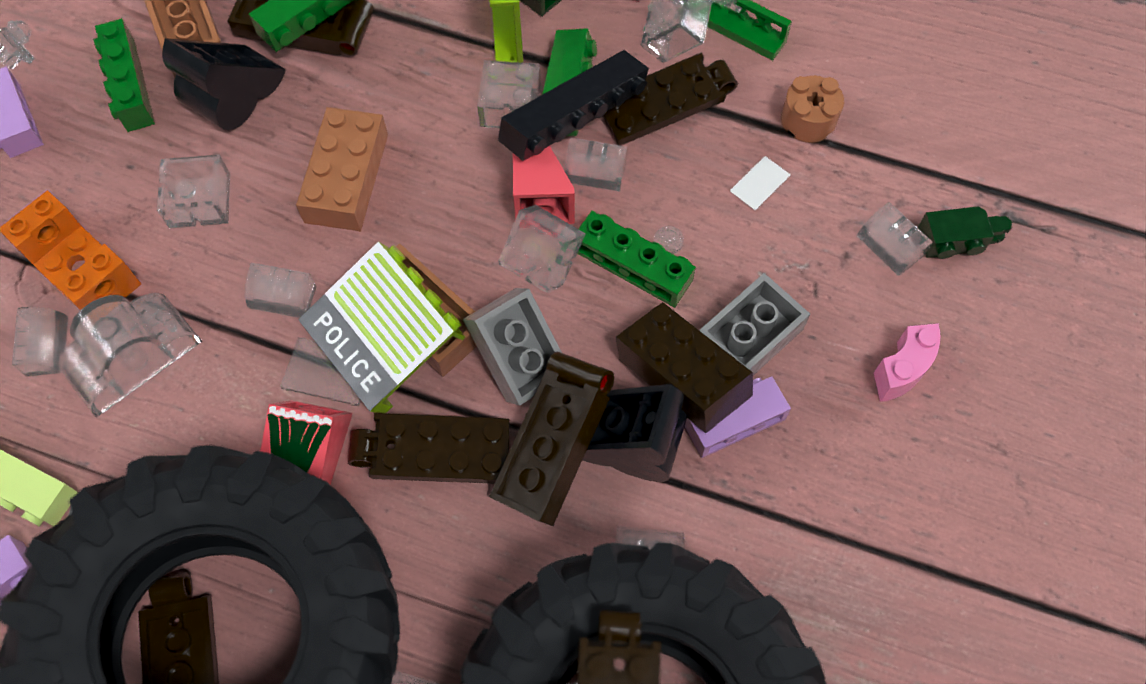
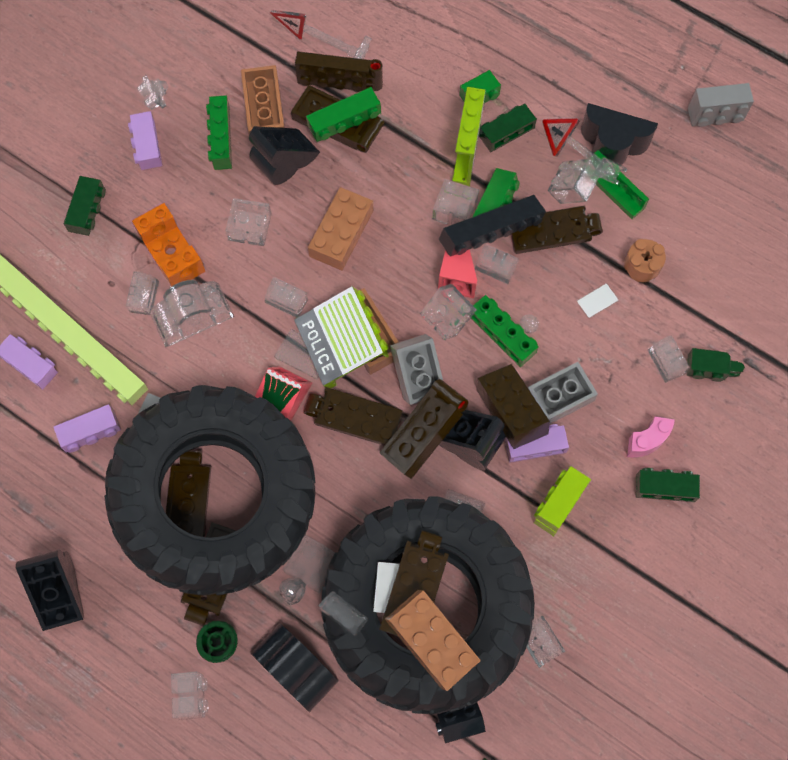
camera: 15 degrees right, 5 degrees up
(806, 496) = (560, 500): none -> lime piece
(960, 428) = (667, 485): none -> dark green brick

